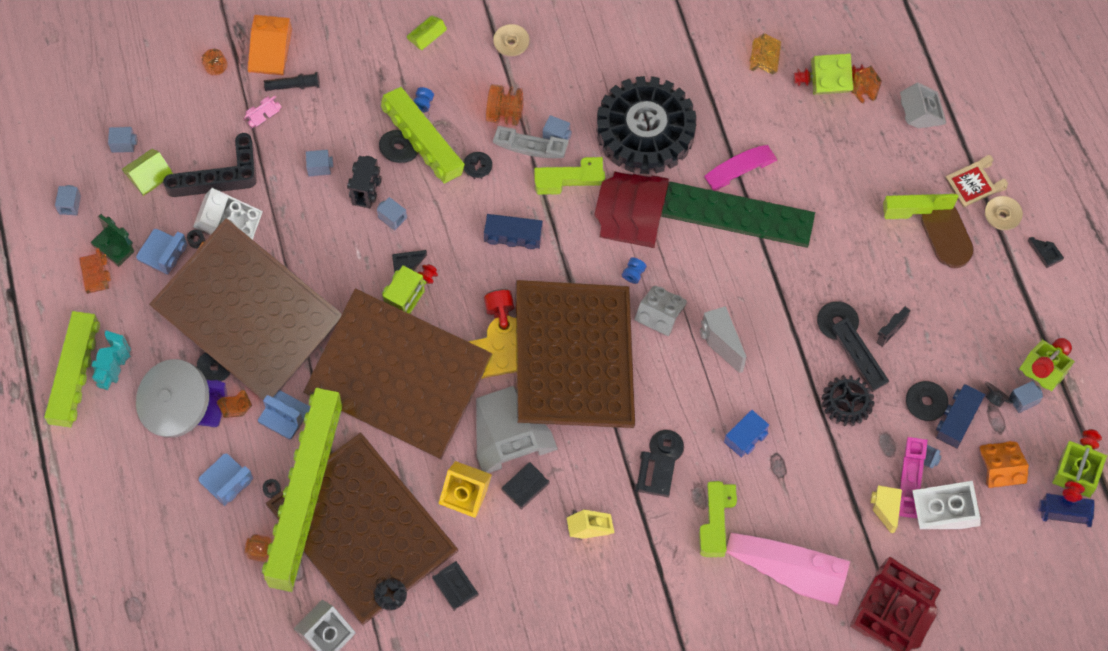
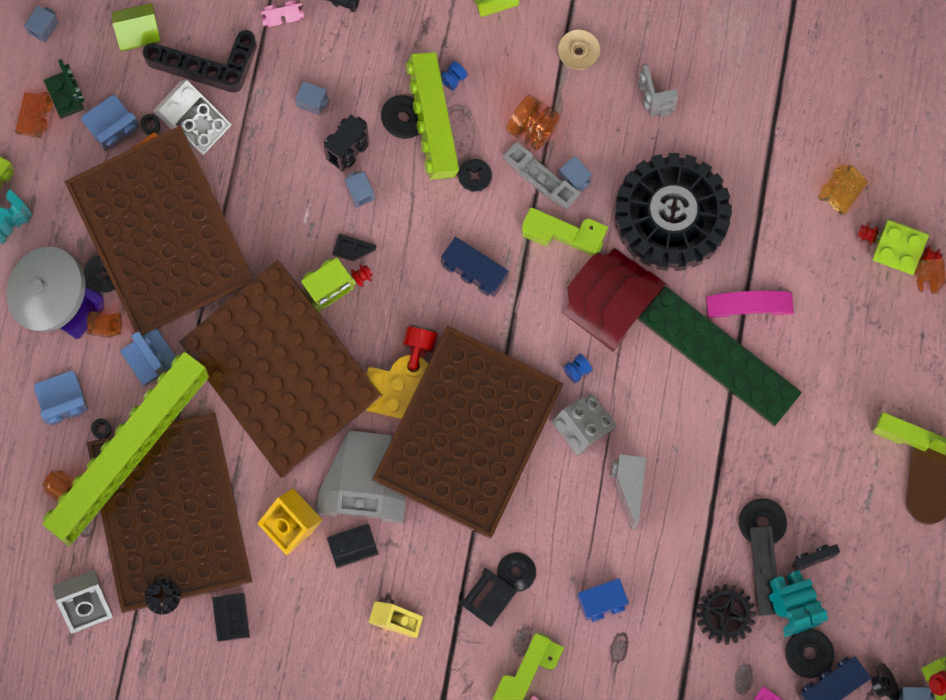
camera: 25 degrees right, 10 degrees up
(589, 51) = (656, 103): none -> light grey bracket
(895, 363) = (797, 603): none -> teal hips

